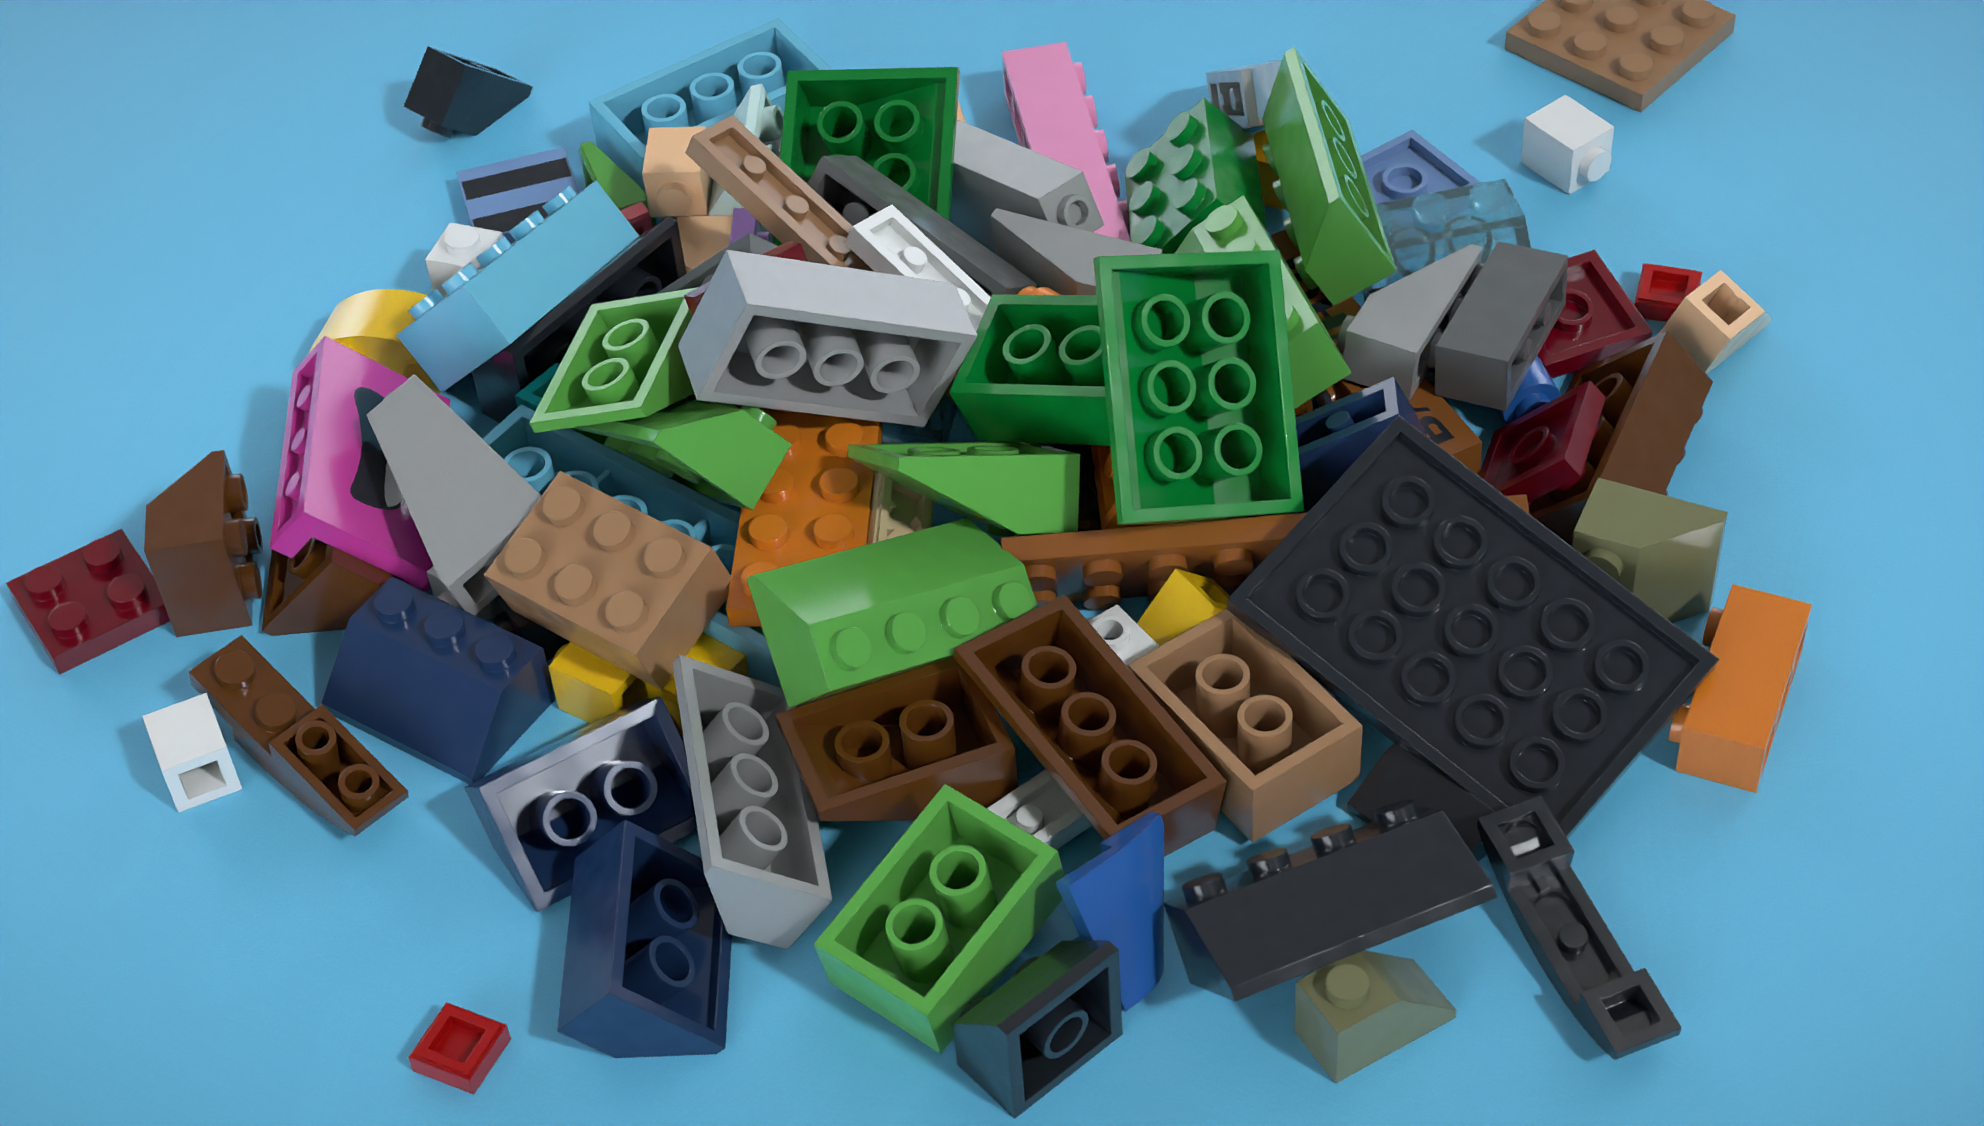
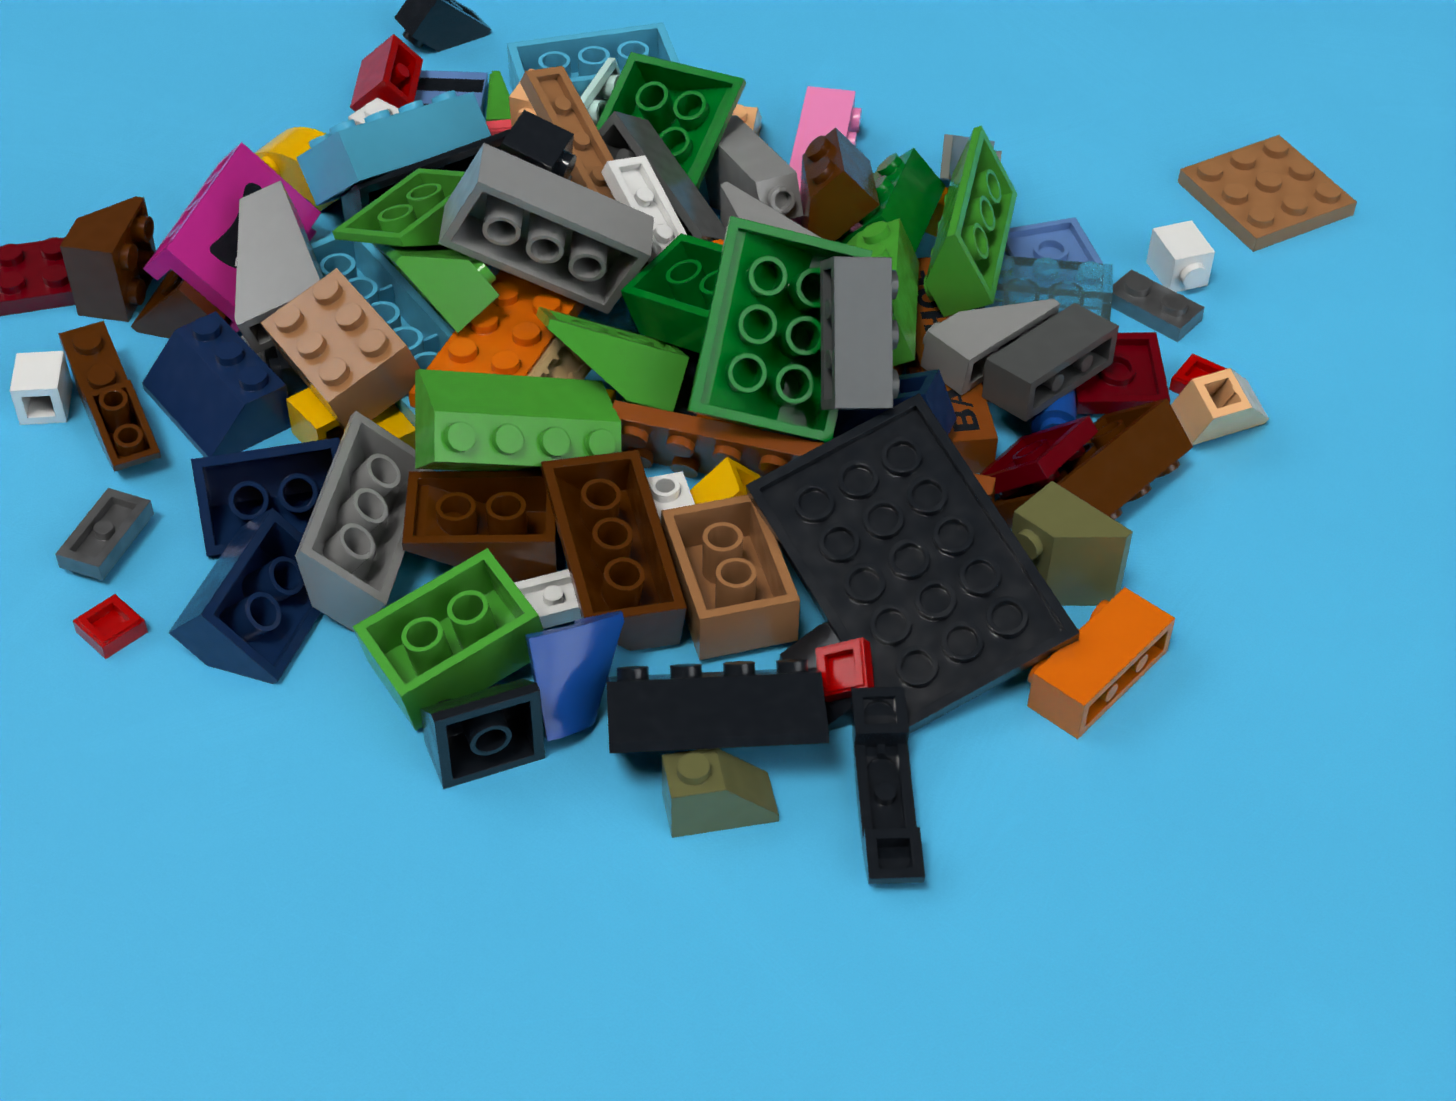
camera: 15 degrees right, 0 degrees up
(388, 925) = (104, 534): none -> flat silver plate
(441, 187) = (388, 74): none -> red brick
(783, 228) = (541, 144): none -> black brick
(1137, 177) = (835, 186): none -> reddish brown slope
(1301, 363) = (858, 333): none -> dark grey brick
(1456, 789) = (845, 667): none -> red tile
(1570, 214) = (1155, 305): none -> flat silver plate

